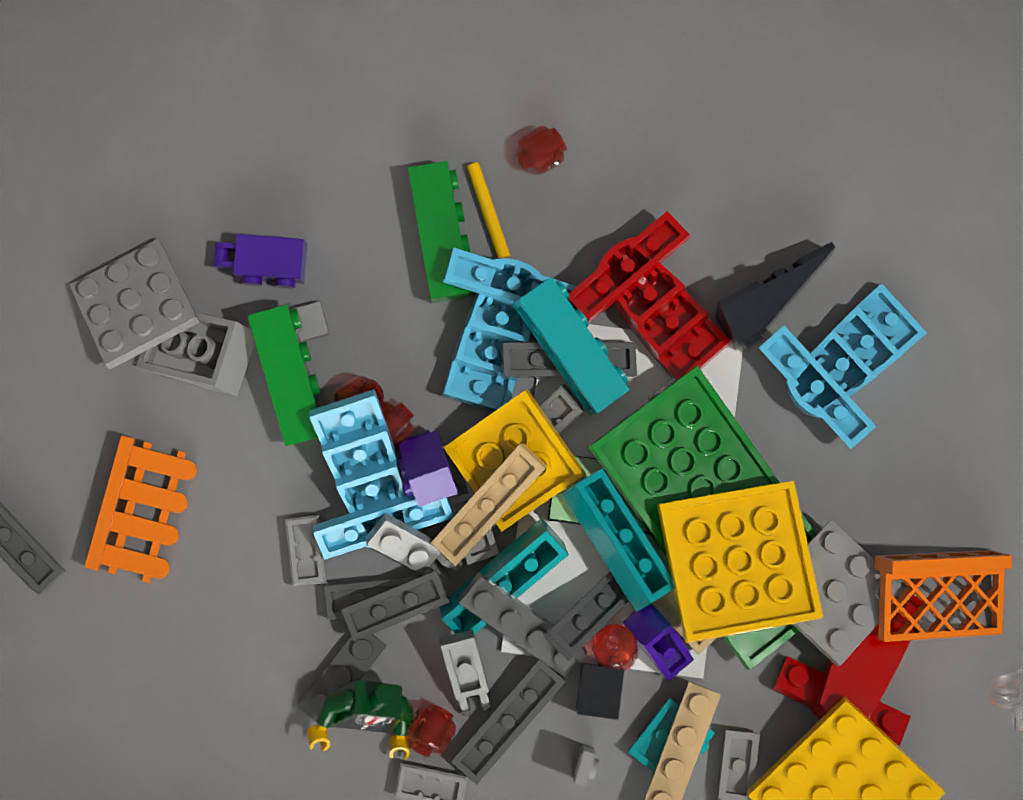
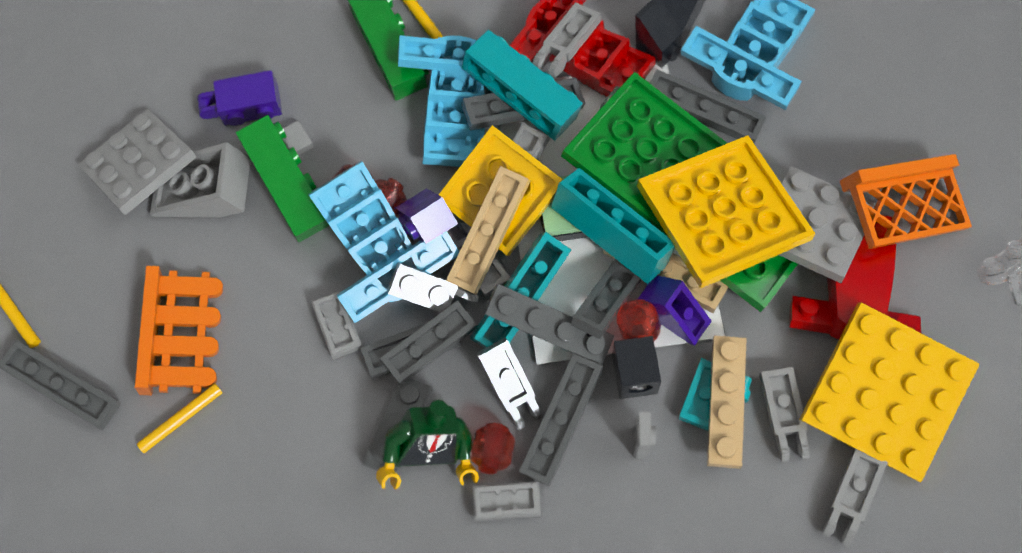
camera: 15 degrees left, 15 degrees down
(122, 604) = (179, 418): none -> yellow bar
(638, 301) = (567, 38): none -> light grey hinge
(767, 417) = (710, 108): none -> dark grey plate

